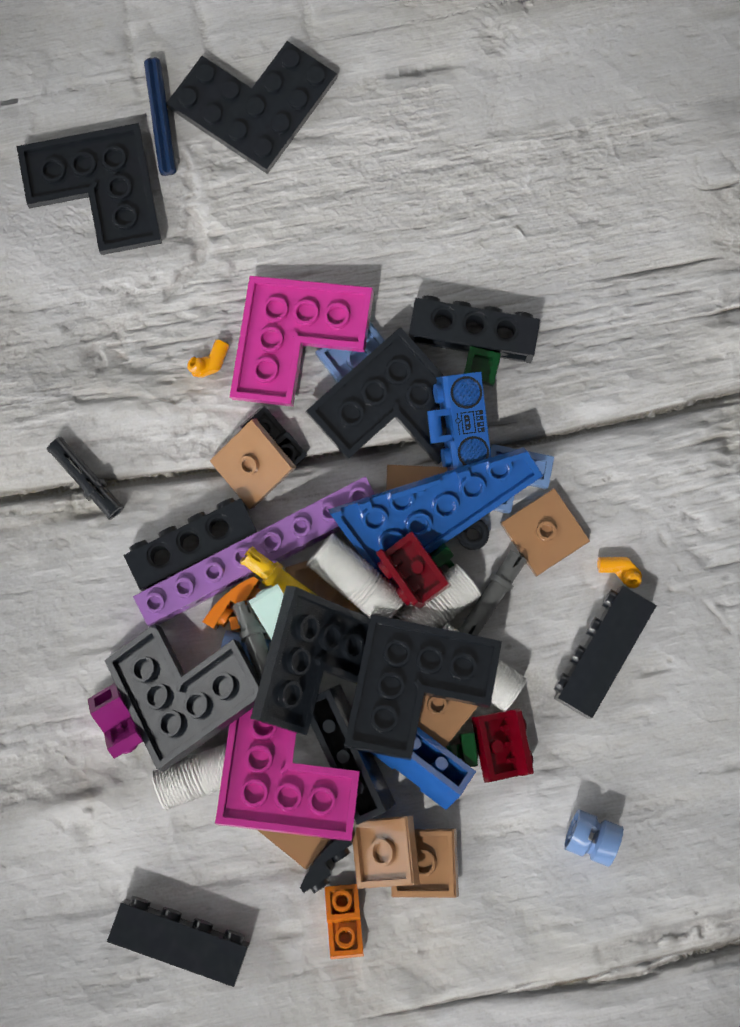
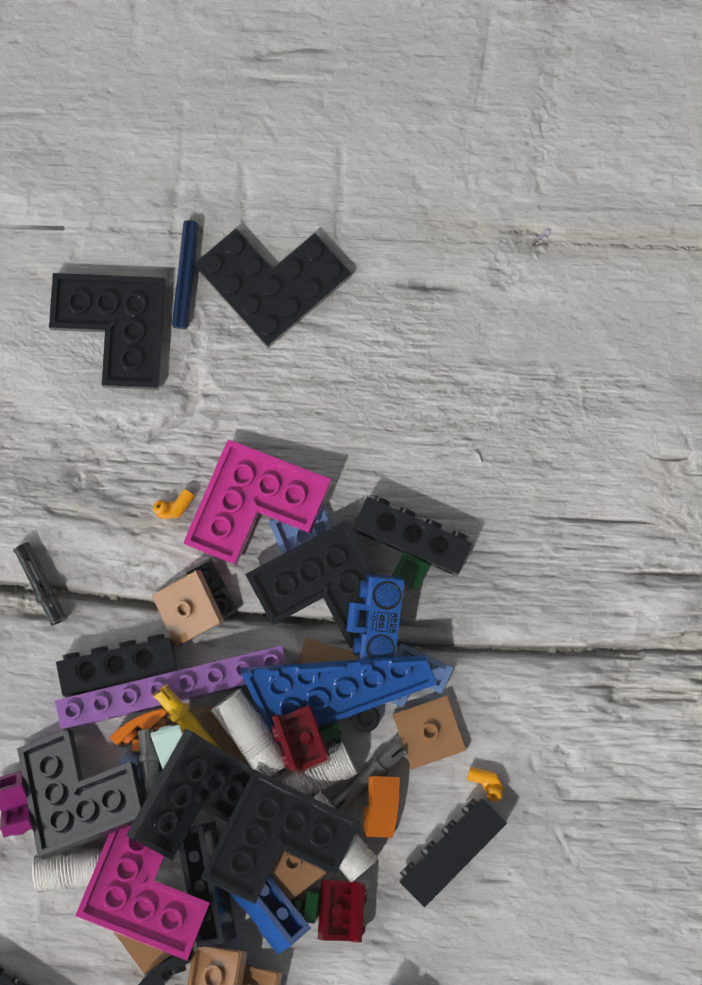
camera: 20 degrees right, 0 degrees up
(518, 623) = (382, 807): none -> orange slope

